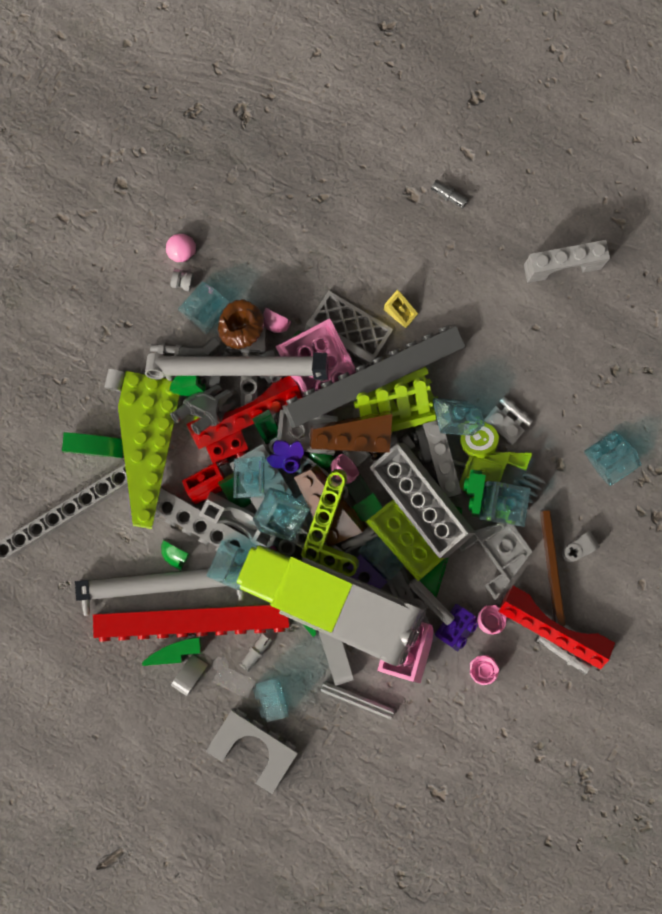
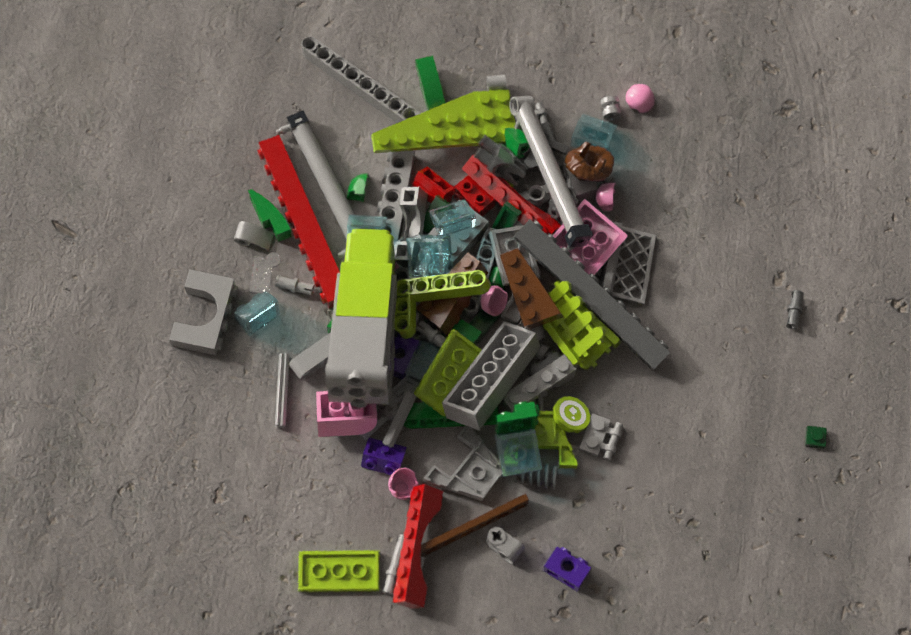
camera: 70 degrees right, 15 degrees down
(286, 453) = (487, 240): dark purple plate -> none
(400, 309) = (665, 301): light yellow slope -> none
(458, 416) = (583, 383): clear light blue slope -> none
(484, 669) = (352, 493): bright pink hair -> none
(550, 707) = (338, 571): none -> lime tile
(575, 227) = (815, 437): none -> dark green plate
(589, 256) = (765, 410): light grey arch -> none
(613, 458) = (604, 546): clear light blue slope -> none
(632, 496) = (573, 578): none -> dark purple brick

